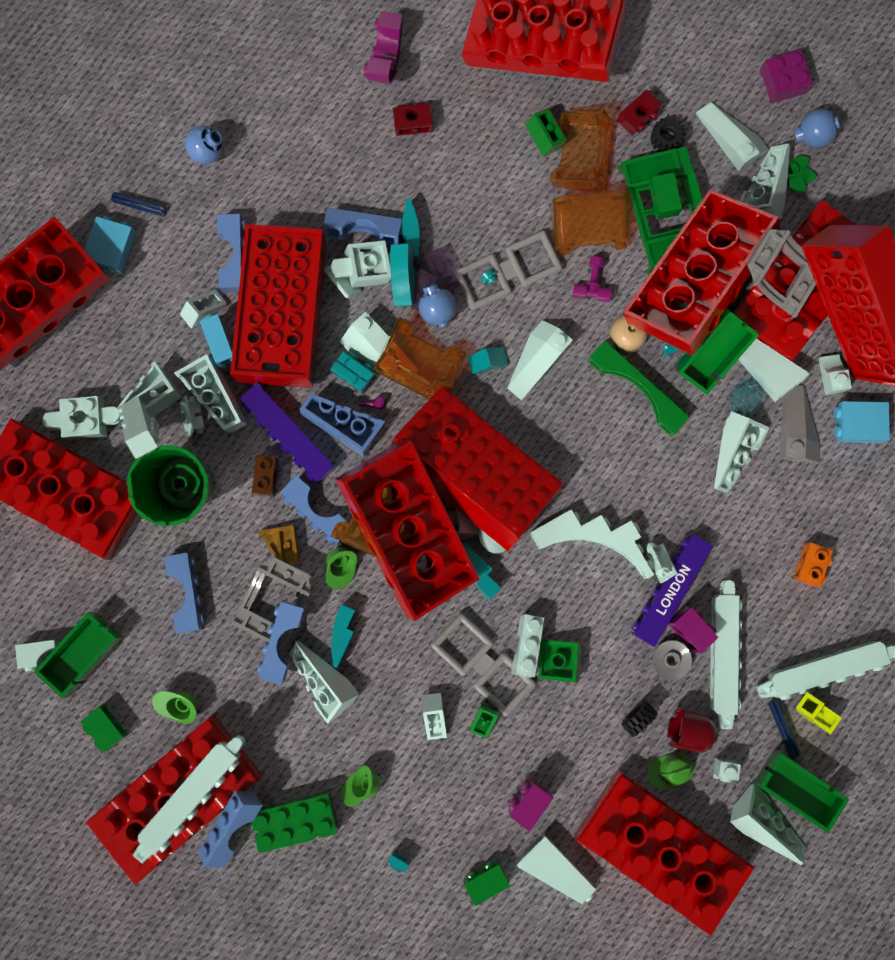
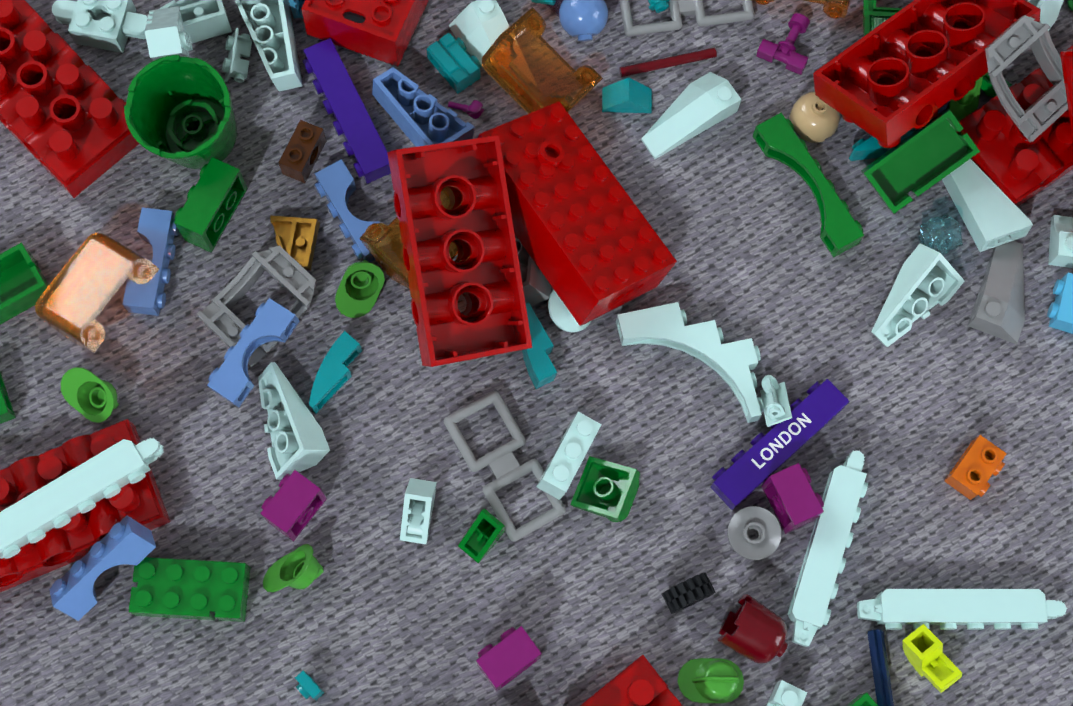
camera: 10 degrees right, 10 degrees down
(148, 630) = (88, 285): none -> clear orange windscreen
(213, 539) = (210, 204): none -> green brick
(347, 742) = (293, 505): none -> magenta brick
(510, 321) = (668, 62): none -> dark red bar

